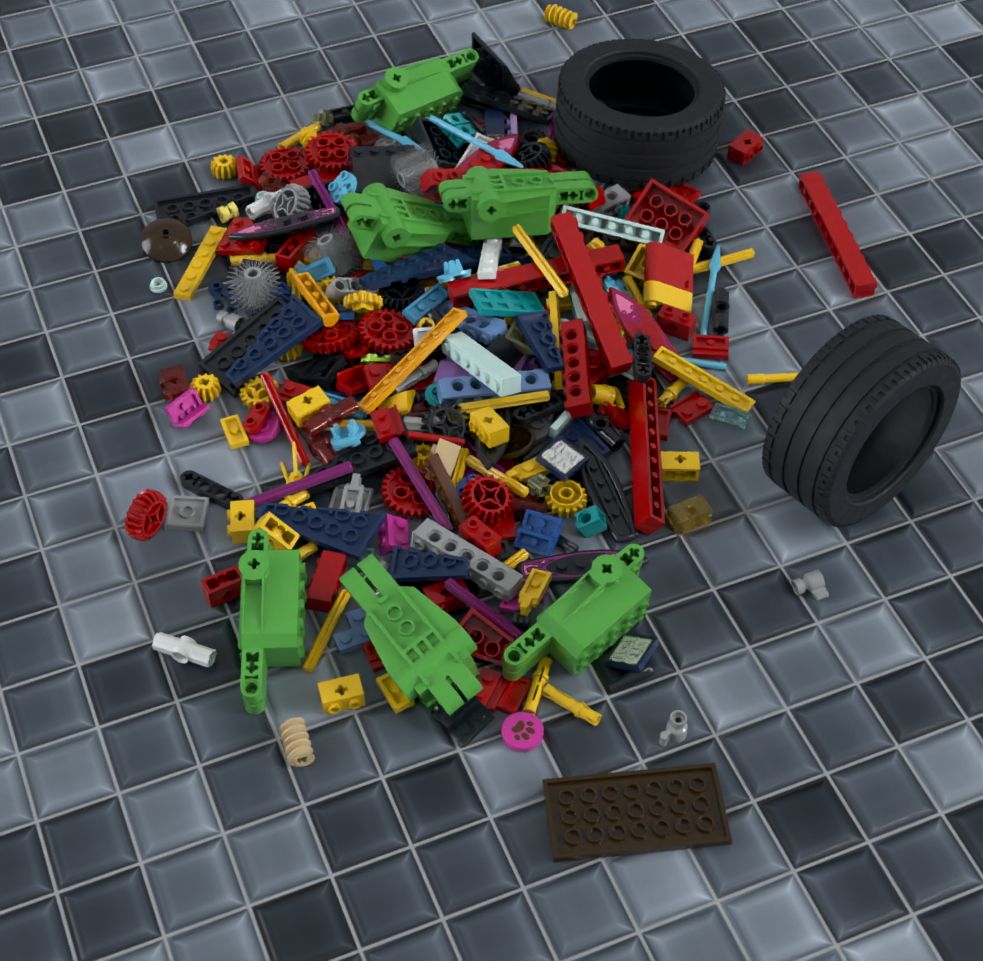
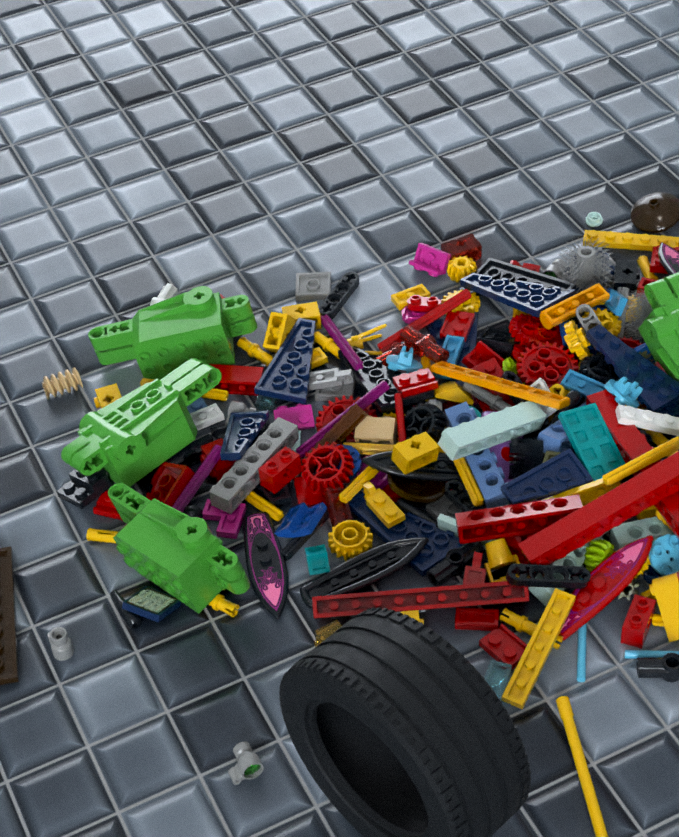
camera: 90 degrees right, 5 degrees down
(145, 515) = (291, 251): red gear -> none
(306, 405) = (433, 324): yellow brick -> none
(514, 696) = (106, 521): red tile -> none
(522, 731) = (68, 532): dark pink tile -> none
(533, 590) = (219, 516): yellow hinge -> none
(538, 485) = (355, 509): olive gear -> none
(562, 459) = (389, 522): tile -> none
(578, 708) = (89, 570): yellow pin -> none
(710, 347) = (608, 660): red plate -> none

